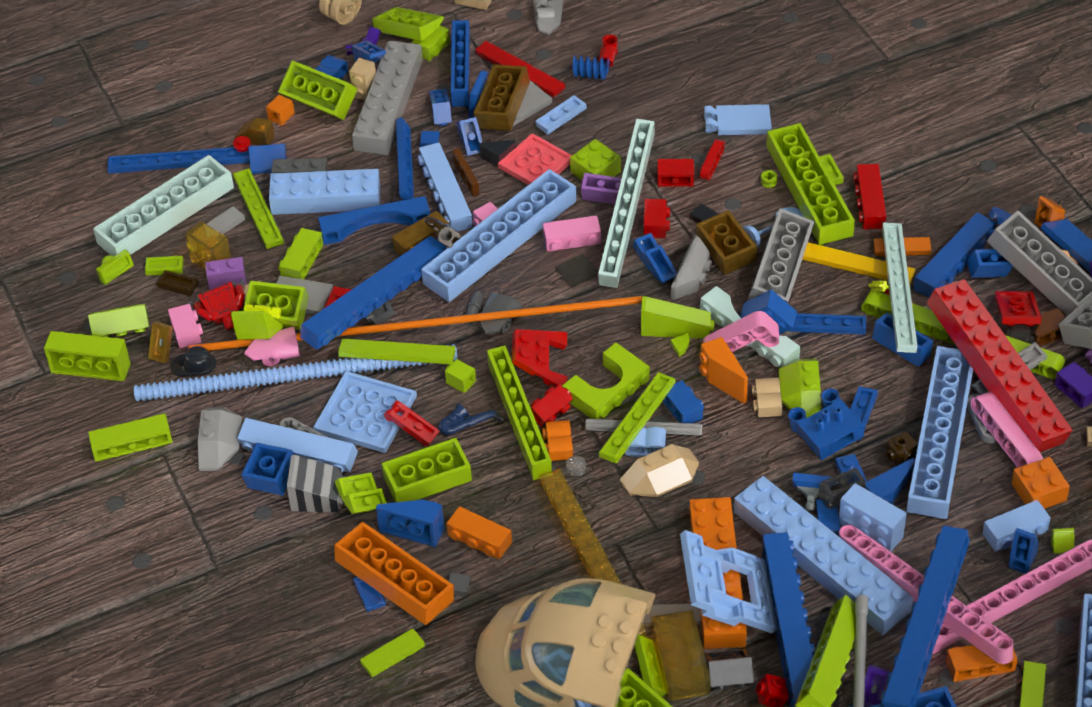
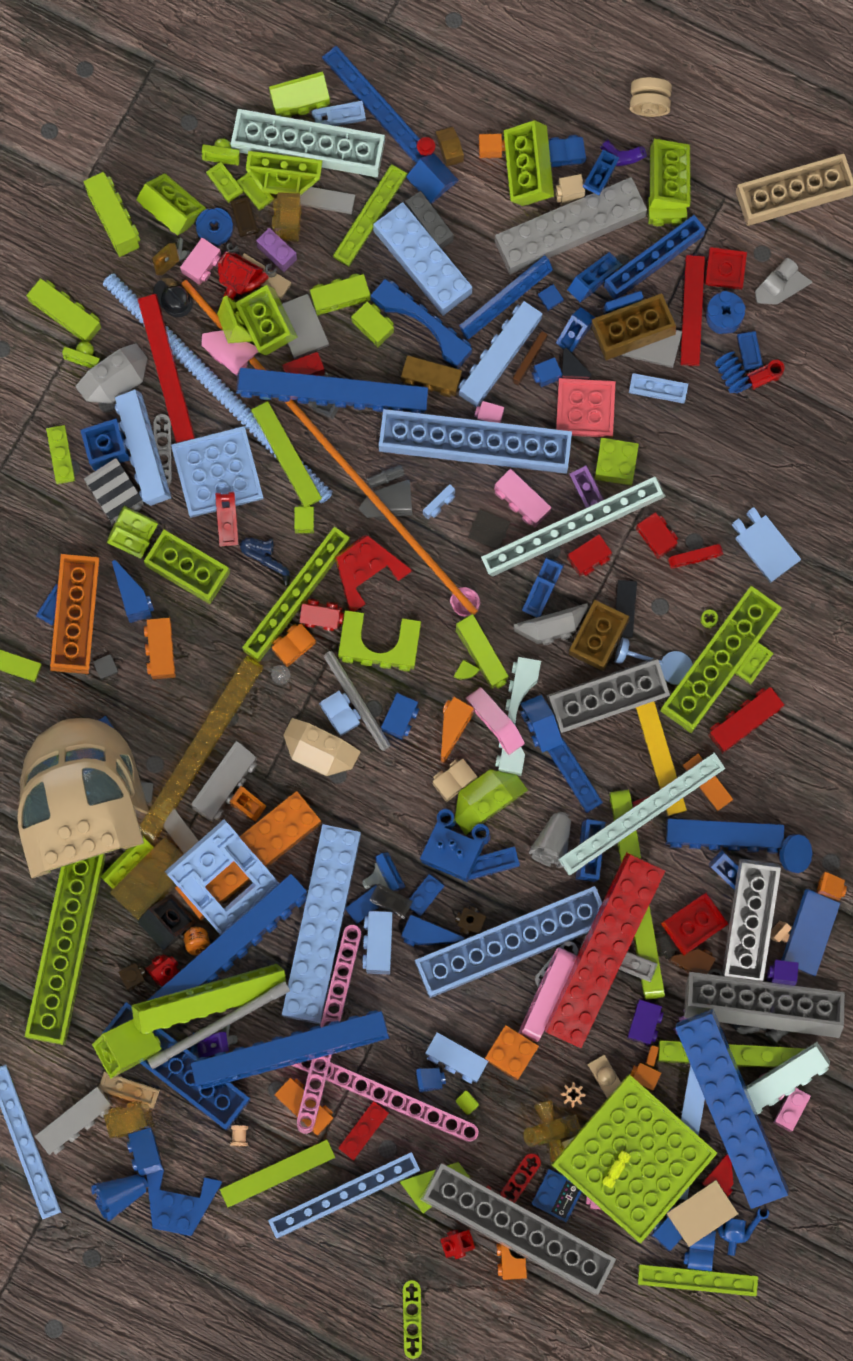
camera: 50 degrees right, 30 degrees up
(122, 189) = (299, 95): none -> lime slope
(138, 278) = (224, 182): none -> lime plate
(156, 302) = (214, 216): none -> blue plate
(166, 173) = (340, 114): none -> light blue plate
(169, 233) = (283, 173): none -> lime wedge
(179, 446) = (81, 355): none -> lime tile
(245, 511) = (60, 454): none -> lime plate
(247, 392) = (166, 368): none -> red tile
(275, 312) = (245, 318): neon yellow axle -> none
(344, 248) = (372, 323): none -> lime brick
(444, 232) = (432, 400): dark brown animal -> none
(486, 168) = (547, 372): none -> blue brick
(506, 34) = (726, 268): none -> red plate
(528, 289) = (445, 496): none -> light blue plate
(540, 48) = (728, 303): none -> blue brick
(573, 49) = (749, 351): none -> blue tile
(624, 314) = (458, 606): none -> bright pink hair
(637, 418) = (351, 693): lime tile -> none
(637, 551) = (224, 782): none -> light grey slope
(666, 548) = (247, 804): none -> orange slope
(765, 651) = (196, 940): none -> orange head
(877, 360) = (552, 840): none -> light grey cone
(879, 286) = (638, 794): neon yellow axle -> none
(1035, 632) = (363, 1130): none -> red plate

